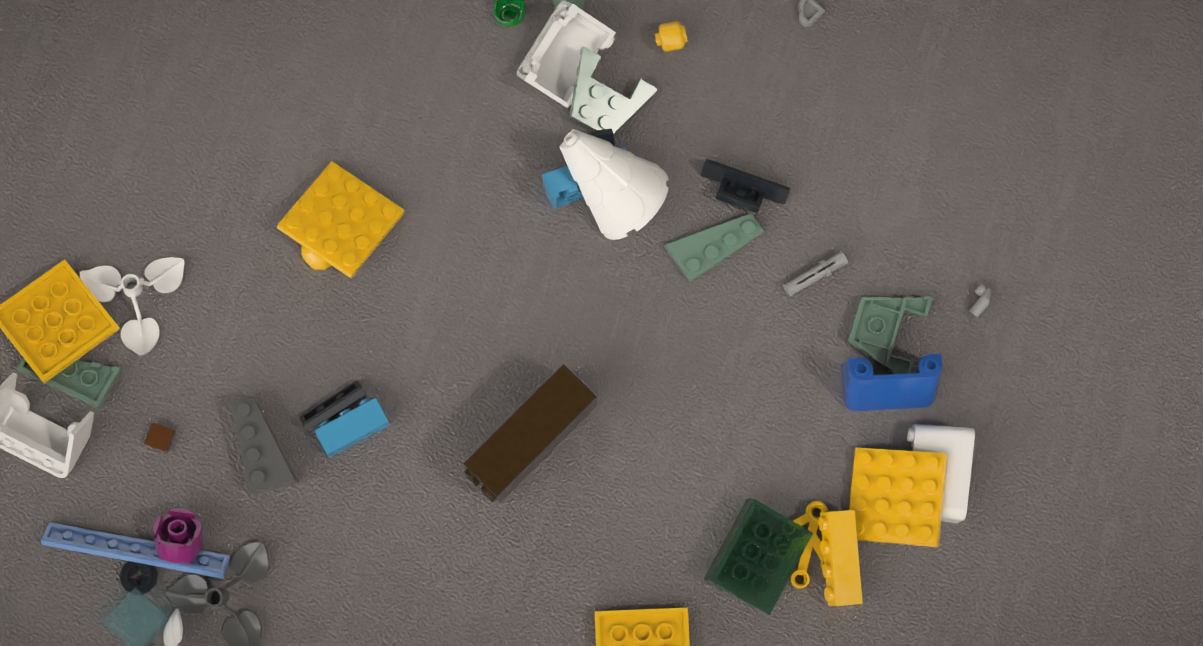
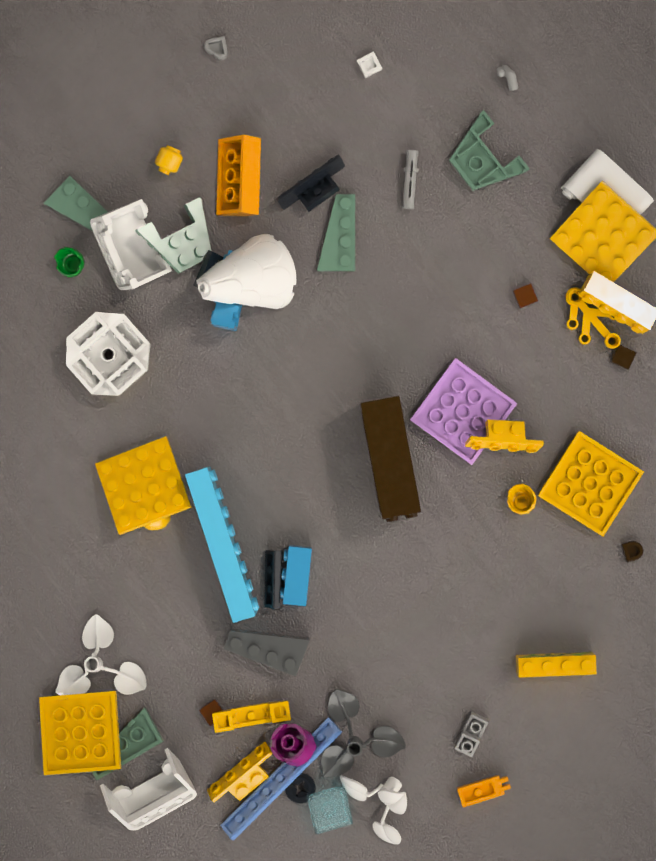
camera: 55 degrees left, 10 degrees up
(112, 511) = (242, 777): none -> yellow bracket
(180, 476) = (251, 715): none -> yellow slope
(334, 331) = (222, 545): none -> medium azure brick
(441, 79) = (91, 341): none -> white piece
(579, 596) = (521, 499): none -> yellow hair
(627, 479) = (460, 408): none -> lavender plate
(630, 535) = (504, 435): none -> yellow bracket
(702, 111) = (238, 176): none -> light orange slope
(758, 556) = (578, 358): clear green slope -> none
(783, 462) = (525, 295): none -> reddish brown tile
(792, 602) = (623, 357): none -> dark brown tile
(892, 391) = (517, 204): blue windscreen -> none
(896, 162) = (369, 64): none -> white tile

